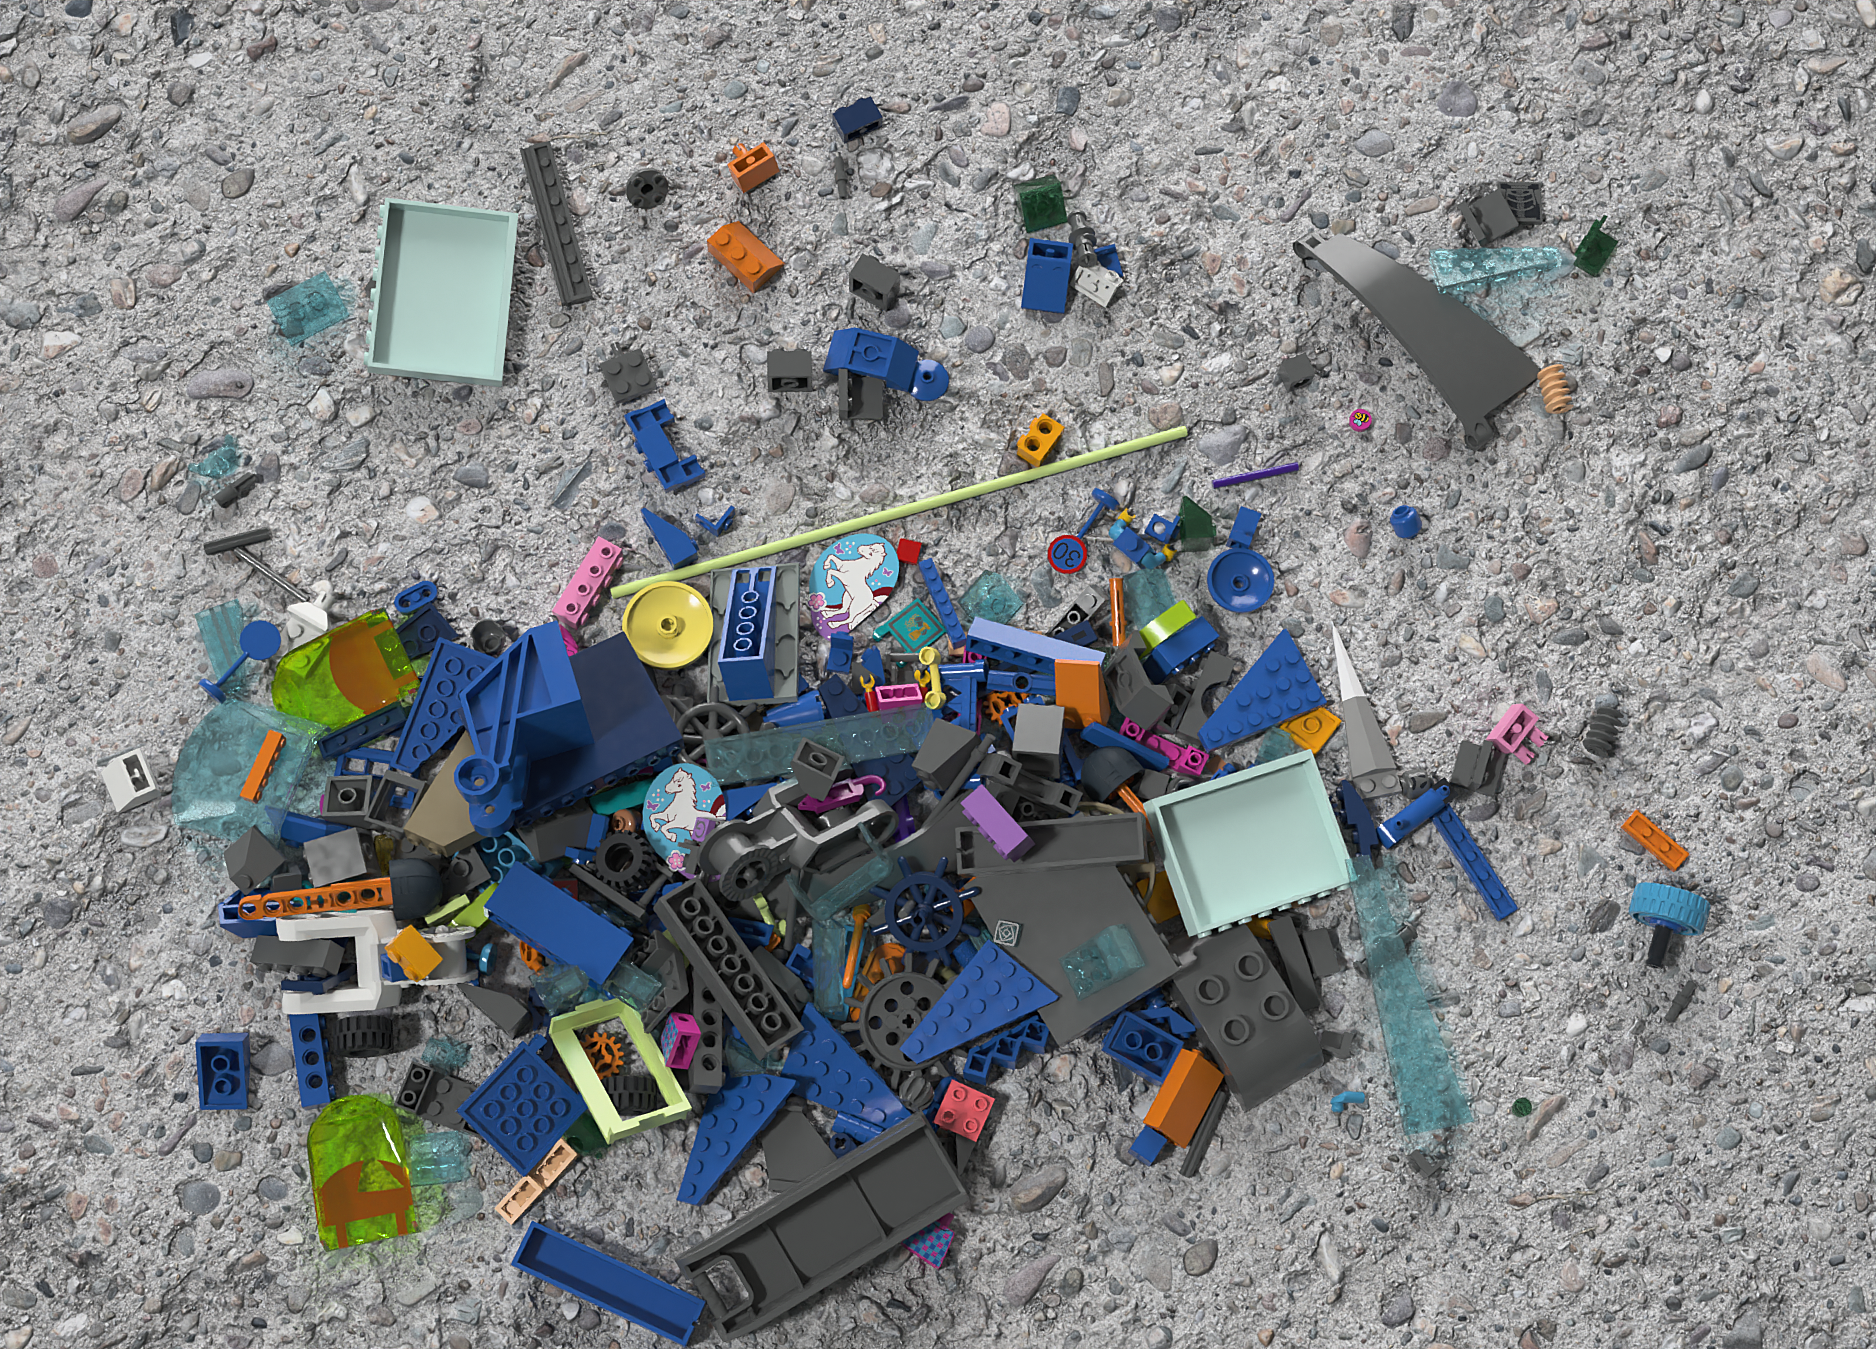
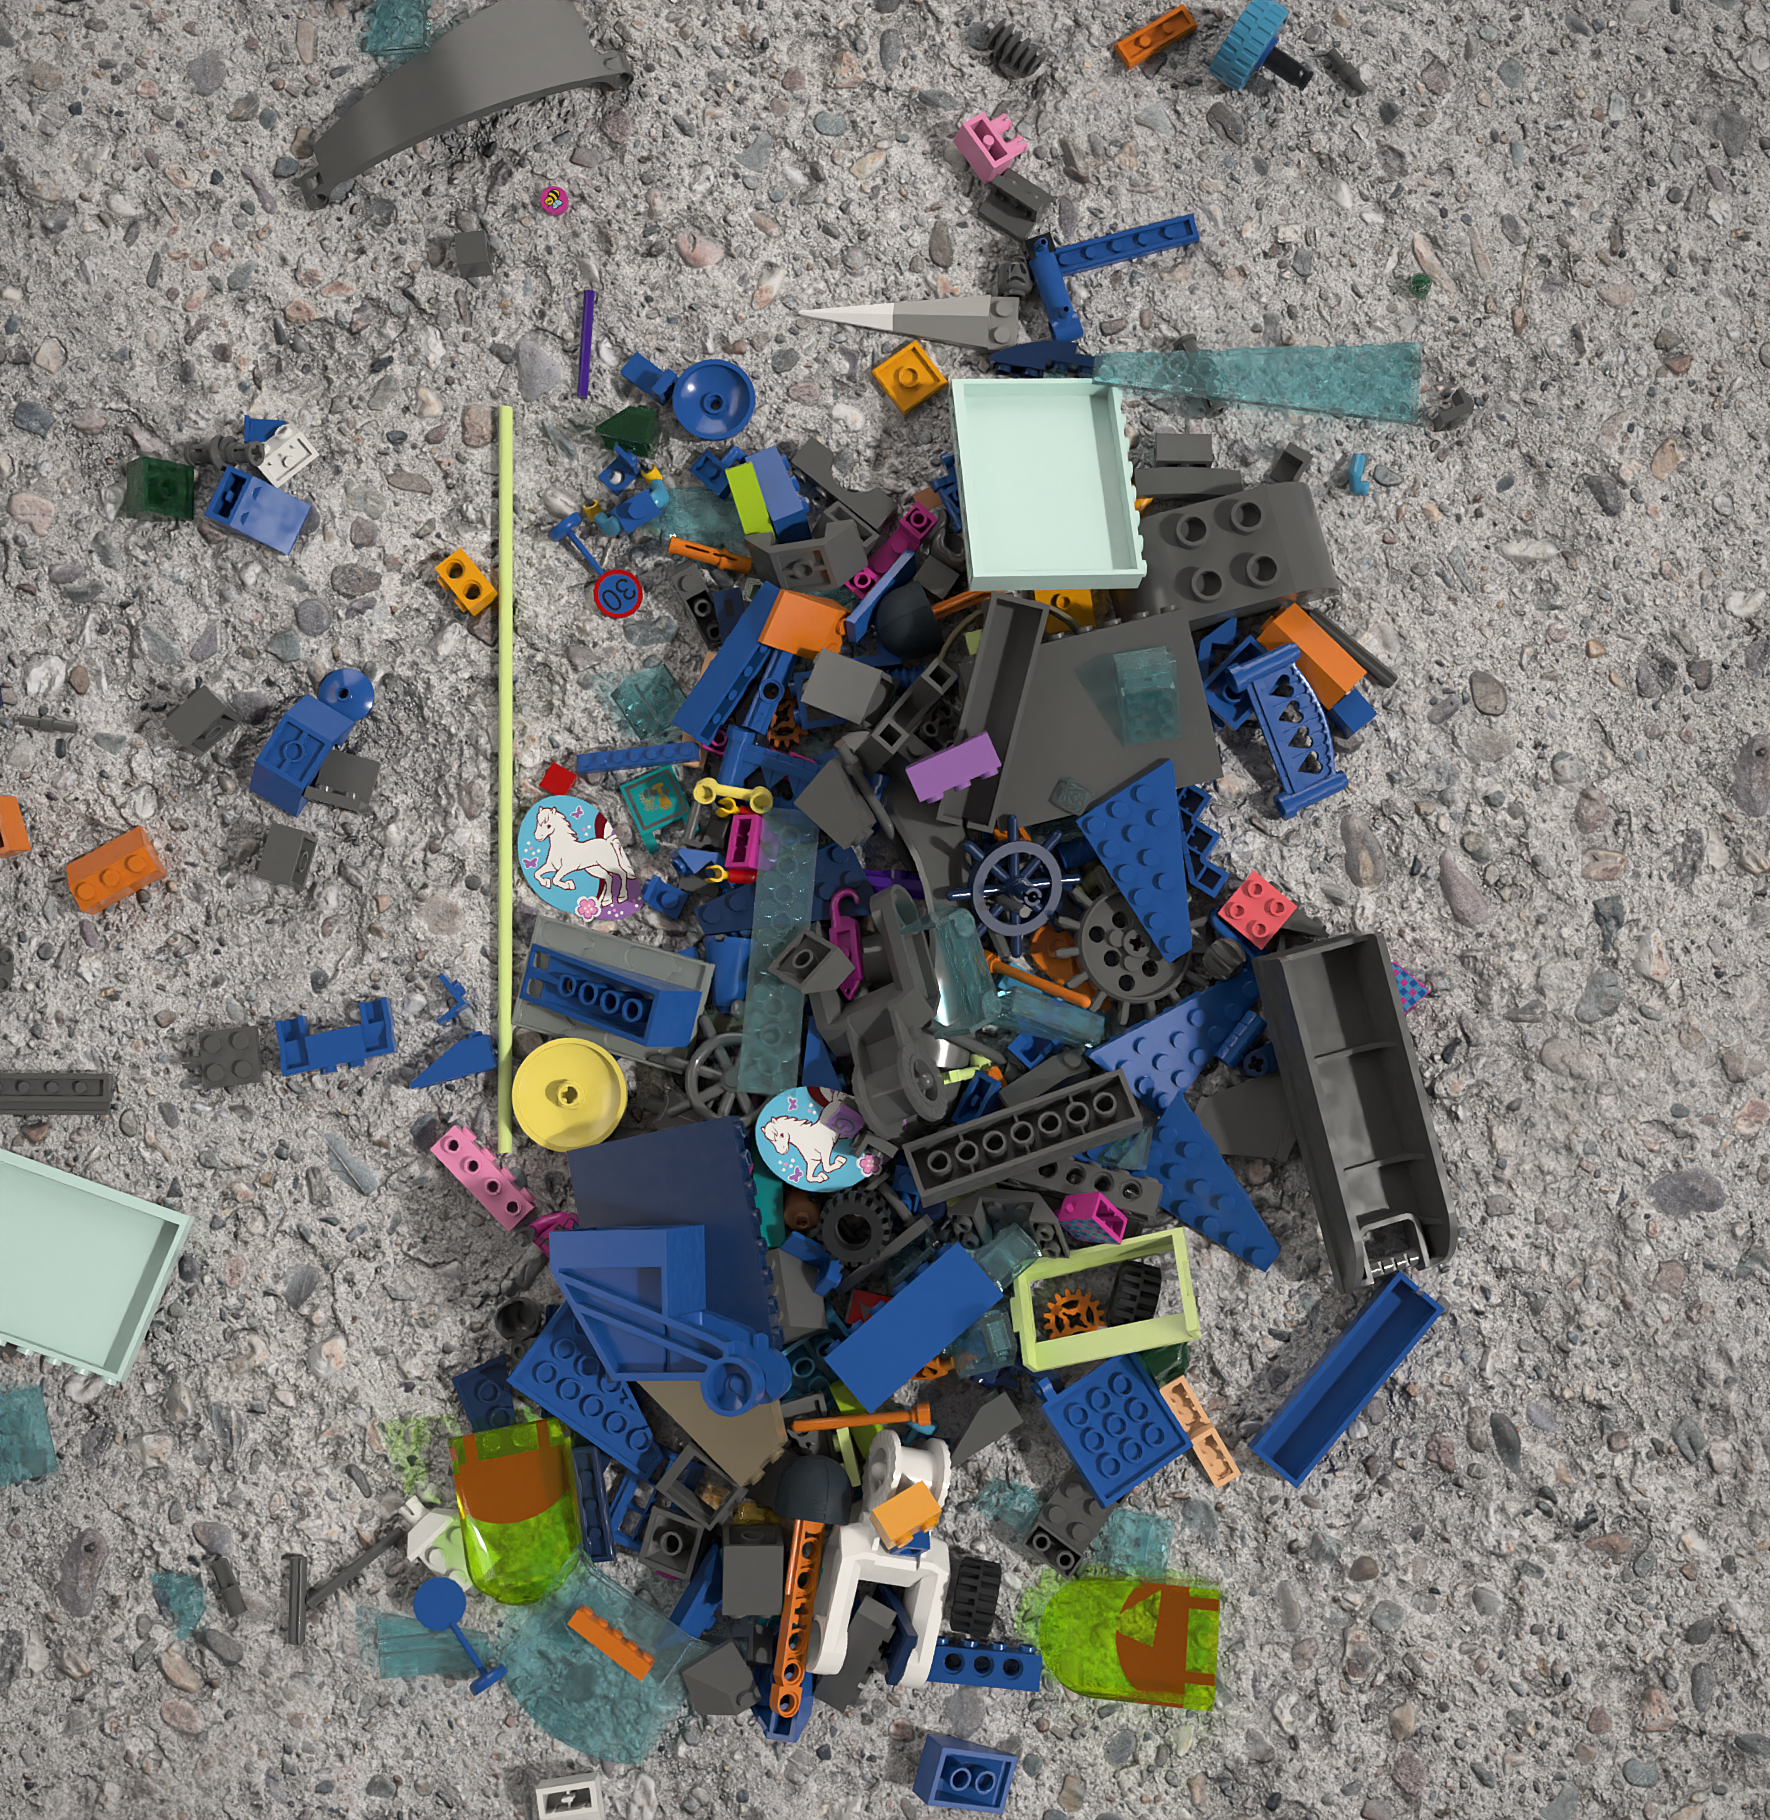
camera: 65 degrees left, 10 degrees up
(415, 597) = (438, 1394): blue plate -> none
(493, 951) = (918, 1414): none -> orange piece
(1147, 1054) = (1258, 679): none -> blue piece
(1189, 592) = (712, 470): none -> blue plate
(1267, 696) = (863, 411): blue wing -> none
(1272, 746) = (929, 429): clear light blue brick -> none
(1405, 522) = (698, 187): blue head -> none

